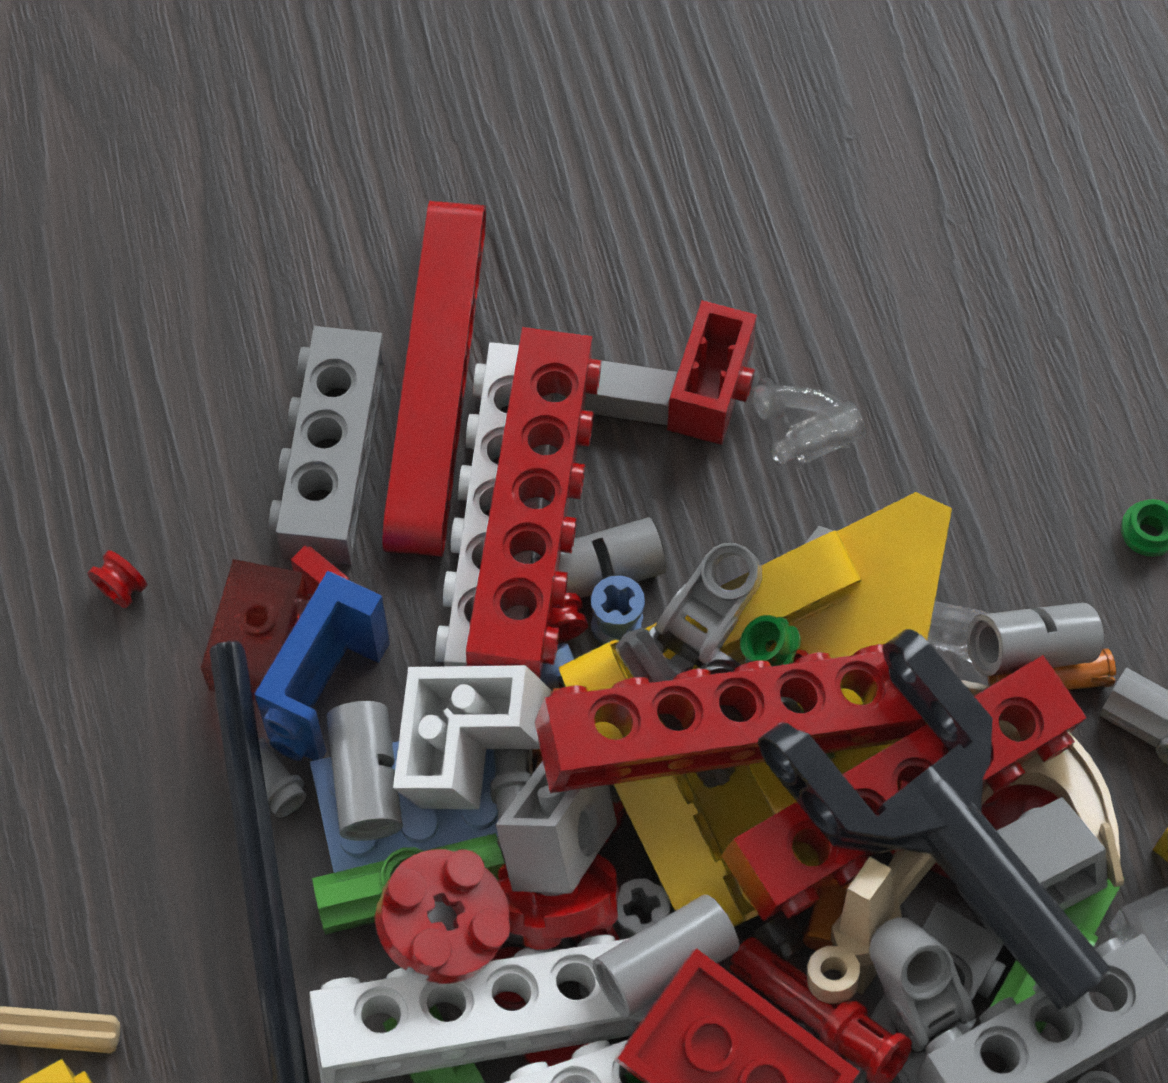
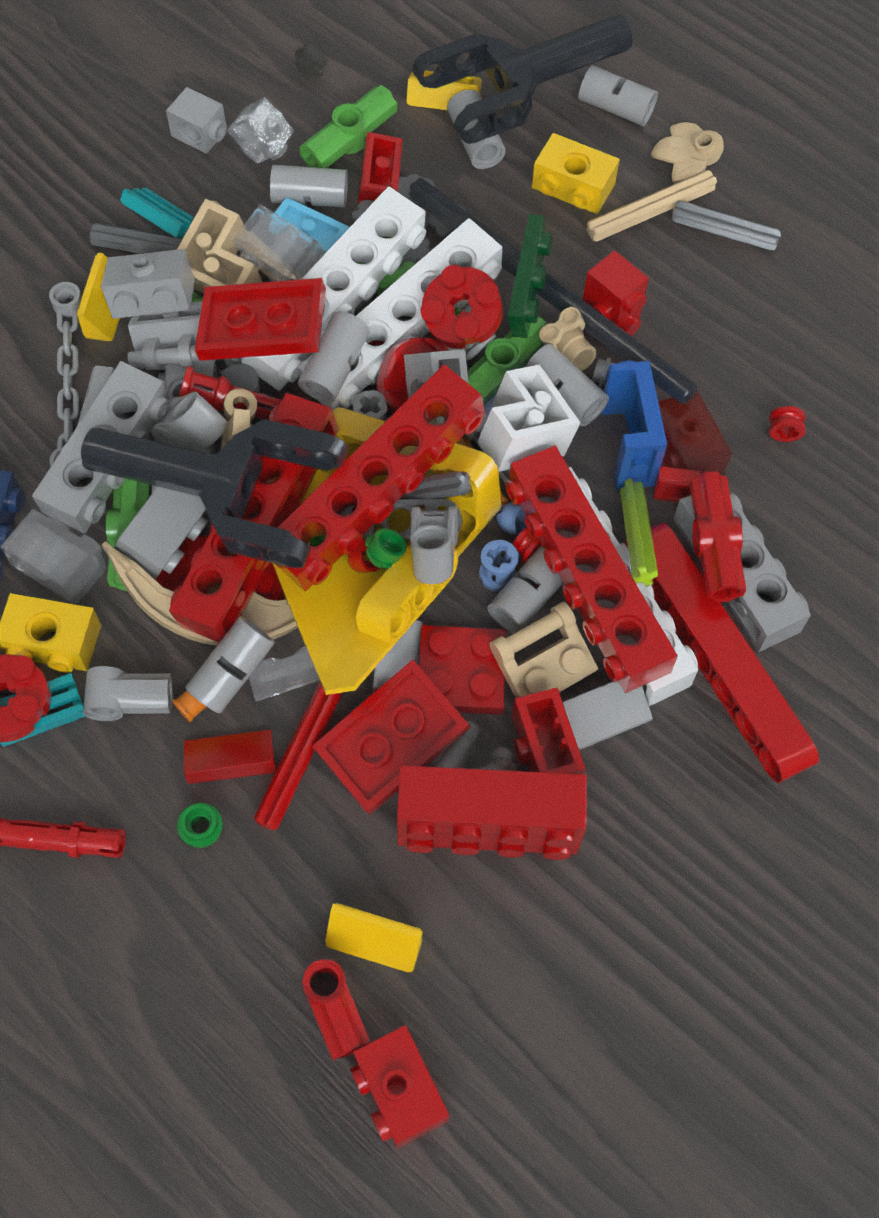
camera: 145 degrees right, 0 degrees up
(197, 862) = (617, 291): none -> red brick
(298, 935) = (529, 276): none -> dark green plate
(306, 843) = (569, 338): none -> tan plate
(350, 452) = (717, 537): none -> red piece
(436, 516) = (638, 533): none -> lime axle
(644, 468) = (551, 667): none -> tan plate
(743, 509) = (464, 667): none -> red plate
(833, 331) = (491, 811): none -> red brick
(862, 468) = (395, 726): none -> red plate
(1009, 531) = (296, 759): none -> red axle
(1018, 315) = (373, 937): none -> yellow slope
(1068, 573) = (229, 756): none -> red slope
(1078, 167) = (400, 1088): none -> red brick
(1103, 268) = (335, 1013): none -> red piece

